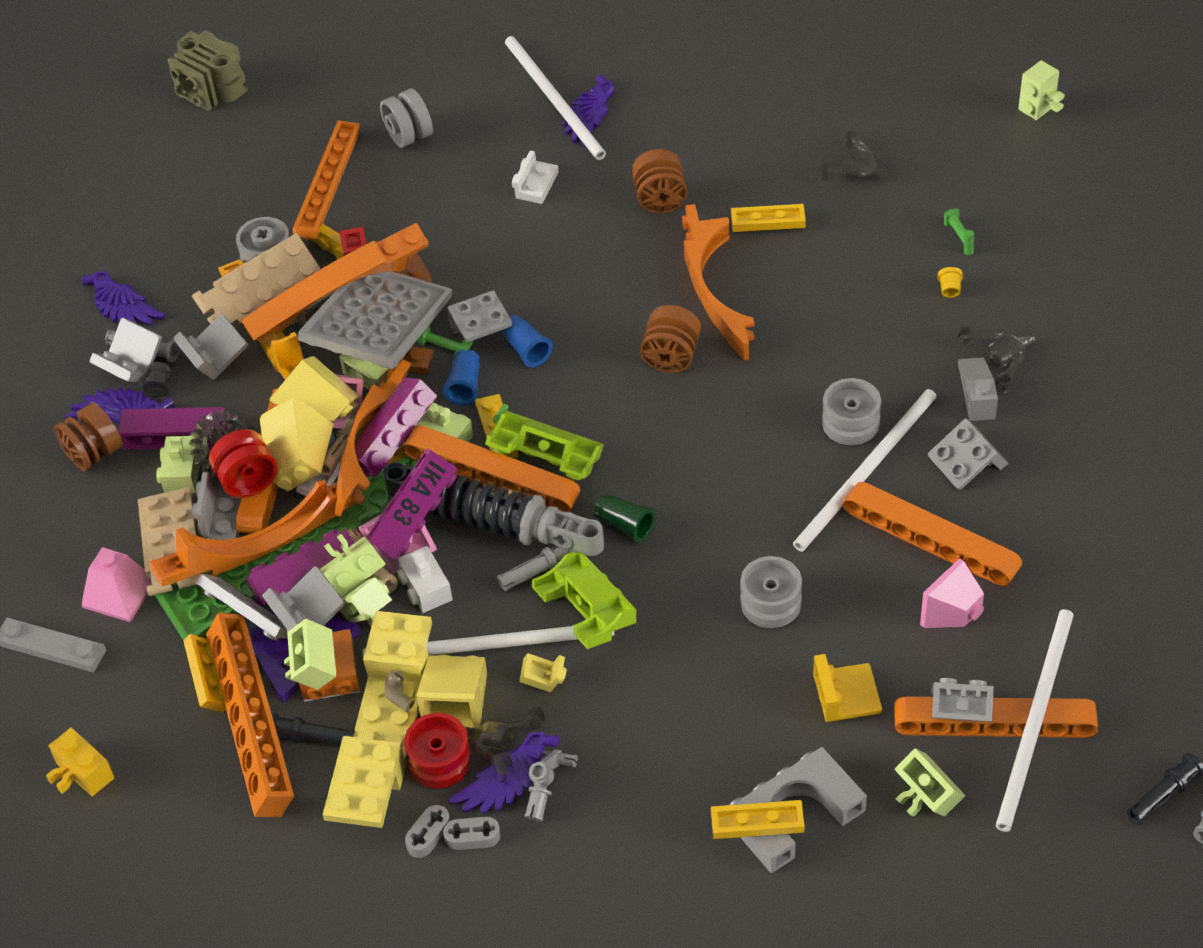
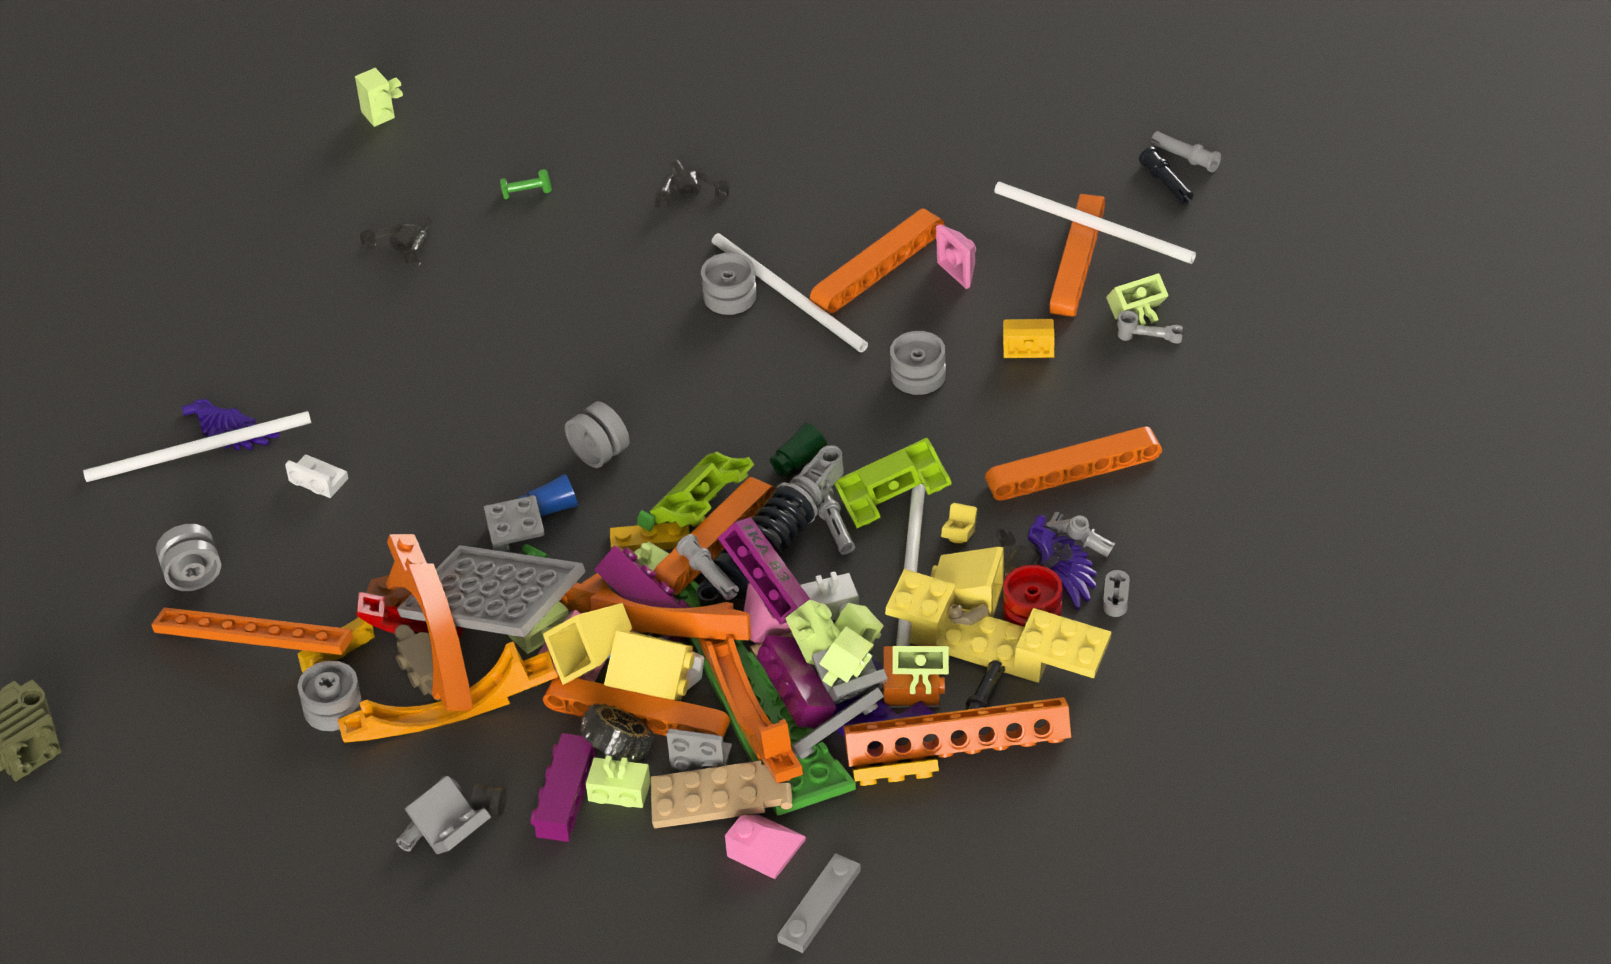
camera: 80 degrees left, 5 degrees down
(79, 763) = (979, 869): yellow brick -> none
(92, 434) = (562, 850): dark orange wheel -> none
(115, 402) = (507, 842): dark purple animal -> none
(120, 300) = (346, 838): dark purple animal -> none
(213, 347) = (463, 744): light grey bracket -> none
(243, 463) = (661, 700): red wheel -> none
(258, 281) = (392, 697): tan hinge -> none
(299, 586) = (846, 656): none -> yellowish green brick
(393, 479) = (701, 560): none -> light grey pin
(424, 829) = (1109, 621): light grey beam -> none
(462, 381) = (580, 548): blue plant -> none
(604, 351) = (597, 434): none -> light grey wheel
(656, 763) = (1073, 463): none -> orange beam
(659, 181) = (385, 370): dark orange wheel -> none
(670, 339) = (594, 382): dark orange wheel -> none
(700, 243) = (467, 358): orange slope -> none
(757, 819) = (1159, 392): yellow plate -> none
(768, 217) = (451, 310): yellow plate -> none
(813, 776) = (1140, 406): light grey arch -> none
(888, 775) = (1128, 326): none -> light grey brick
(950, 281) = (589, 201): yellow piece -> none
(962, 701) = (1069, 258): light grey bracket -> none
(965, 454) = (798, 225): light grey bracket -> none
(978, 389) = (723, 204): light grey slope -> none

